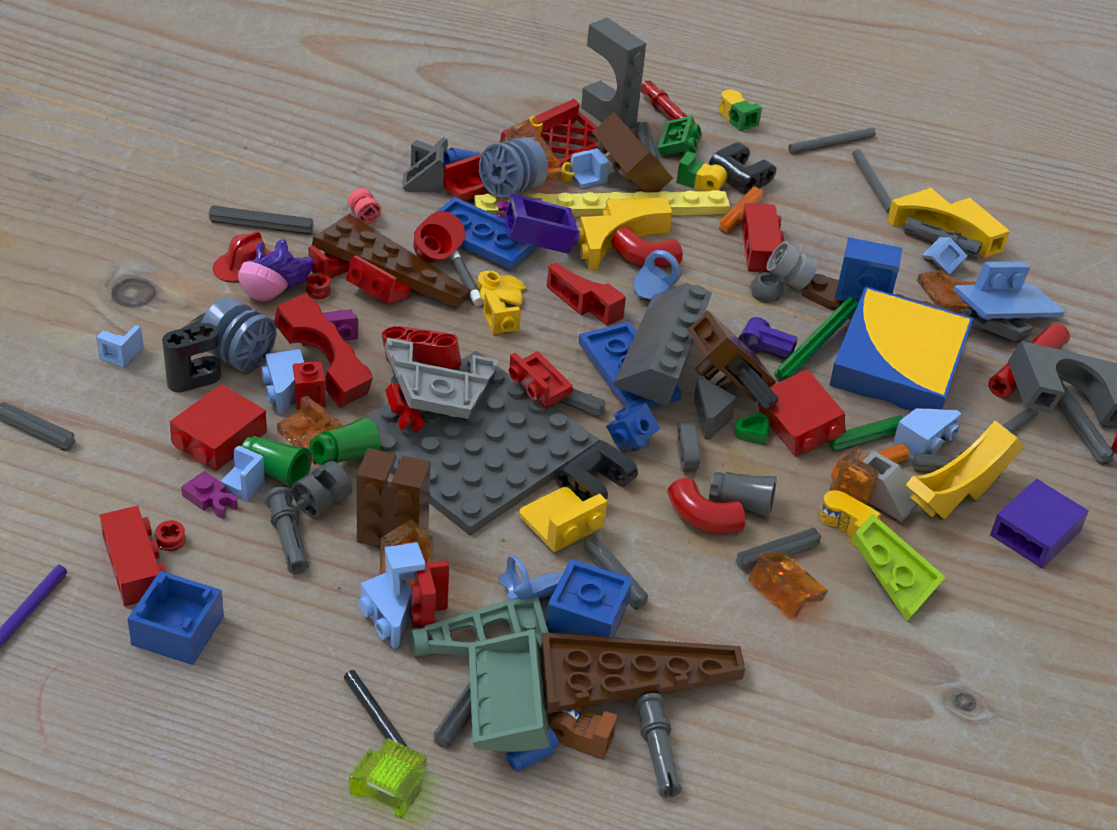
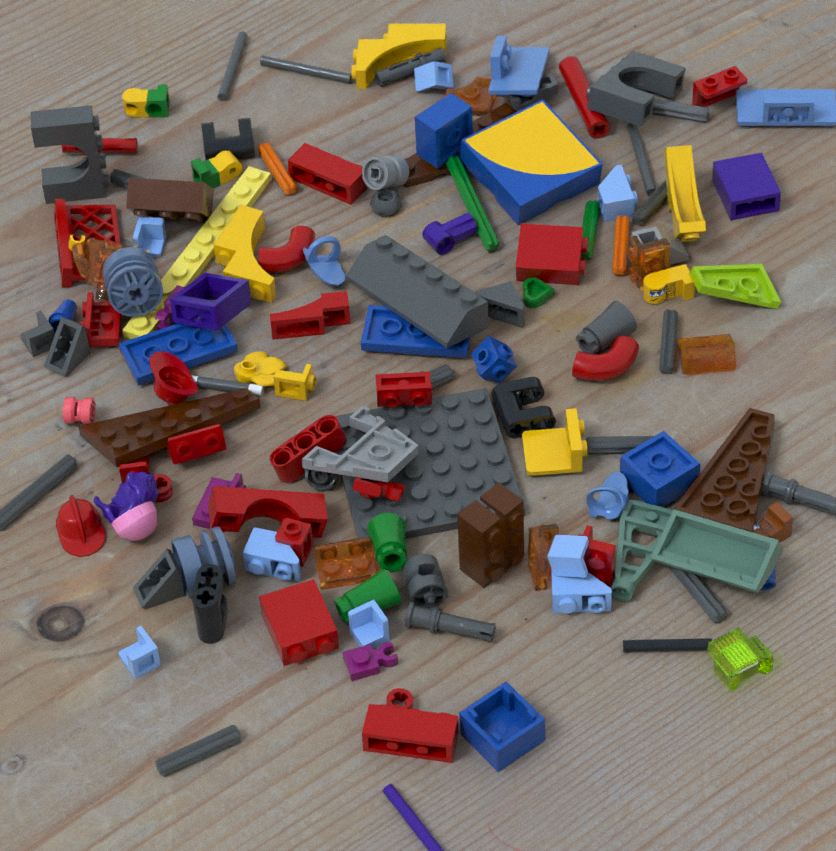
camera: 50 degrees left, 5 degrees up
(680, 136) = (153, 158): green bracket -> none
(688, 446) = (532, 339): dark grey beam -> none
(733, 358) = (482, 260): reddish brown piece -> none

